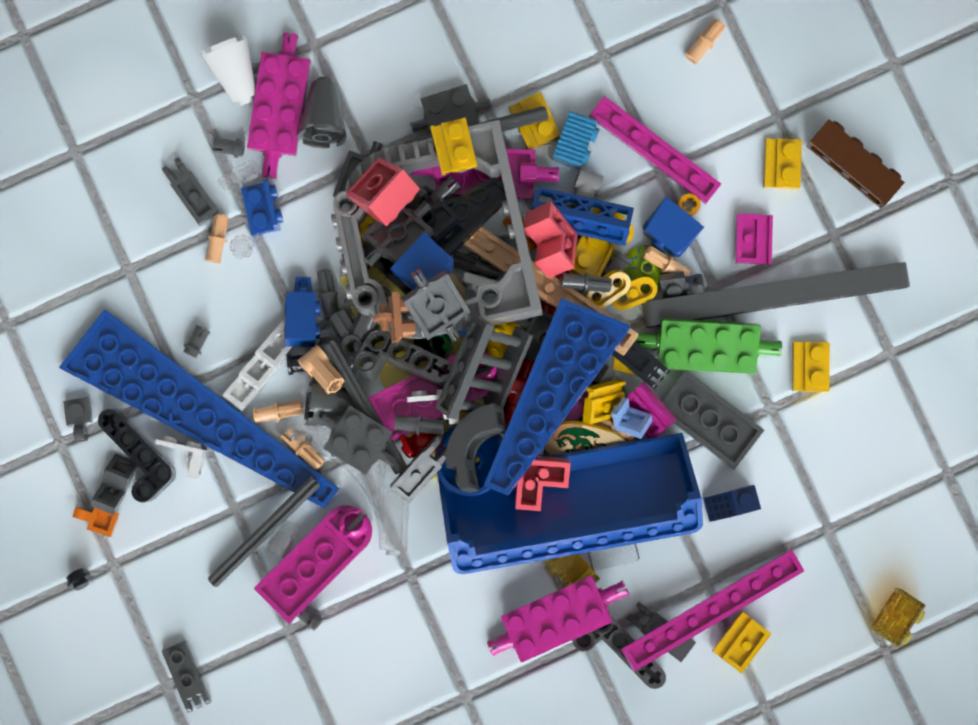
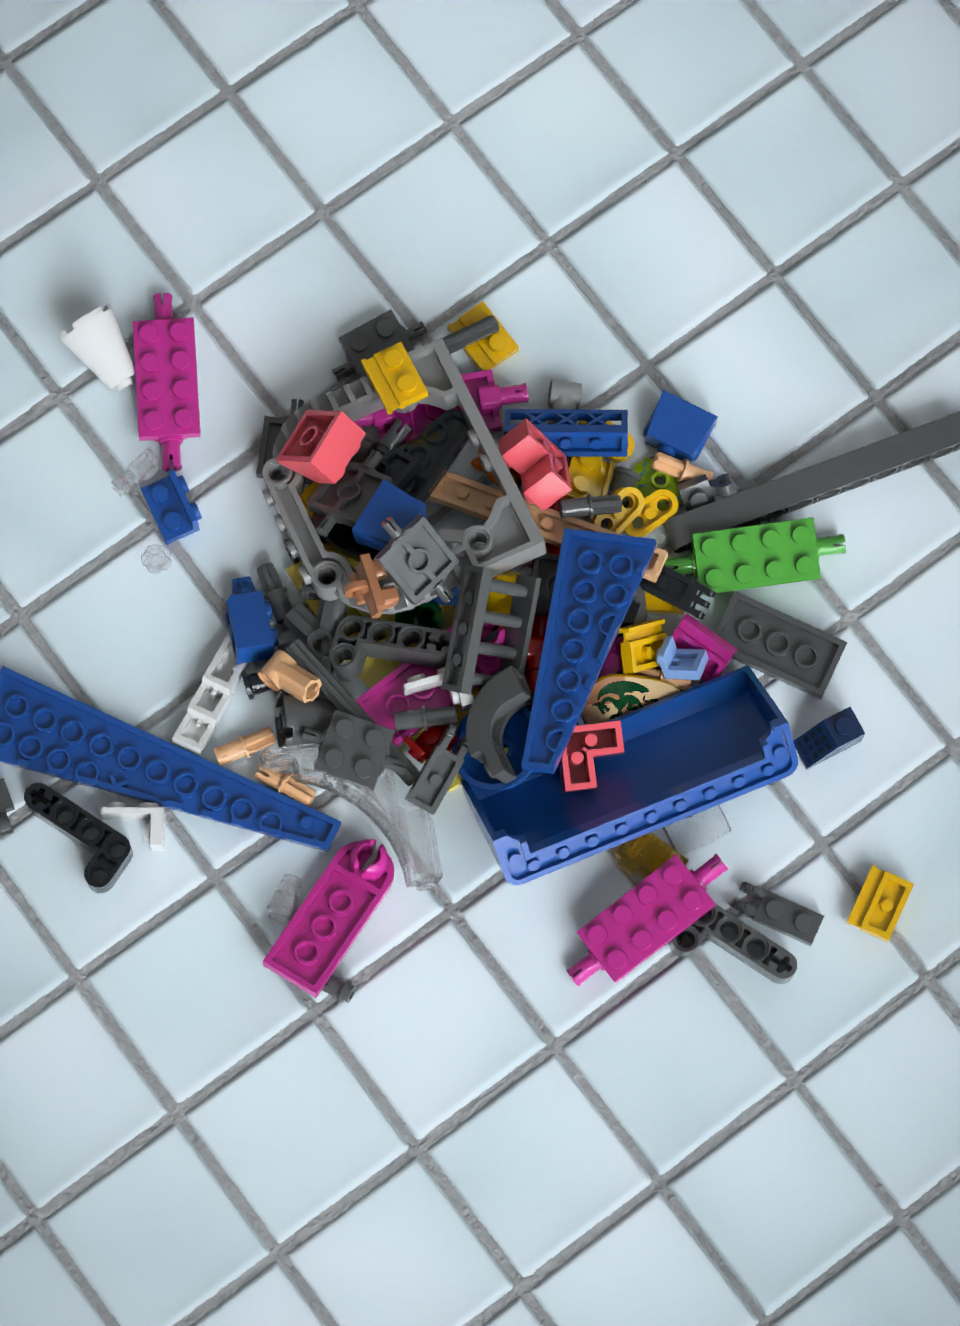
camera: 15 degrees left, 10 degrees down
(78, 579) = (38, 1002): black plate -> none
(99, 520) = (52, 923): orange plate -> none
(114, 485) = (59, 876): dark grey slope -> none
(186, 675) = (198, 1093): dark grey hinge -> none
(191, 193) = (80, 506): dark grey hinge -> none
(195, 343) = (124, 683): dark grey pin -> none
(217, 238) = (124, 555): light nougat axle -> none
(229, 146) = (120, 442): dark grey pin -> none
(264, 531) = (259, 894): dark grey axle -> none
(322, 116) = (224, 383): dark grey cone -> none
(476, 265) = (451, 519): dark grey axle -> none
(575, 140) = (537, 349): dark azure brick -> none
(655, 150) = (637, 341): dark pink plate -> none
(694, 198) = (698, 389): light orange bush -> none
(705, 41) = (667, 203): light nougat axle -> none
(712, 610) = (834, 869): dark pink plate -> none
(753, 239) = (780, 421): dark pink plate -> none
(782, 163) = (794, 326): yellow plate -> none
(810, 366) = (886, 558): yellow plate -> none
(855, 163) = (881, 307): reddish brown brick -> none

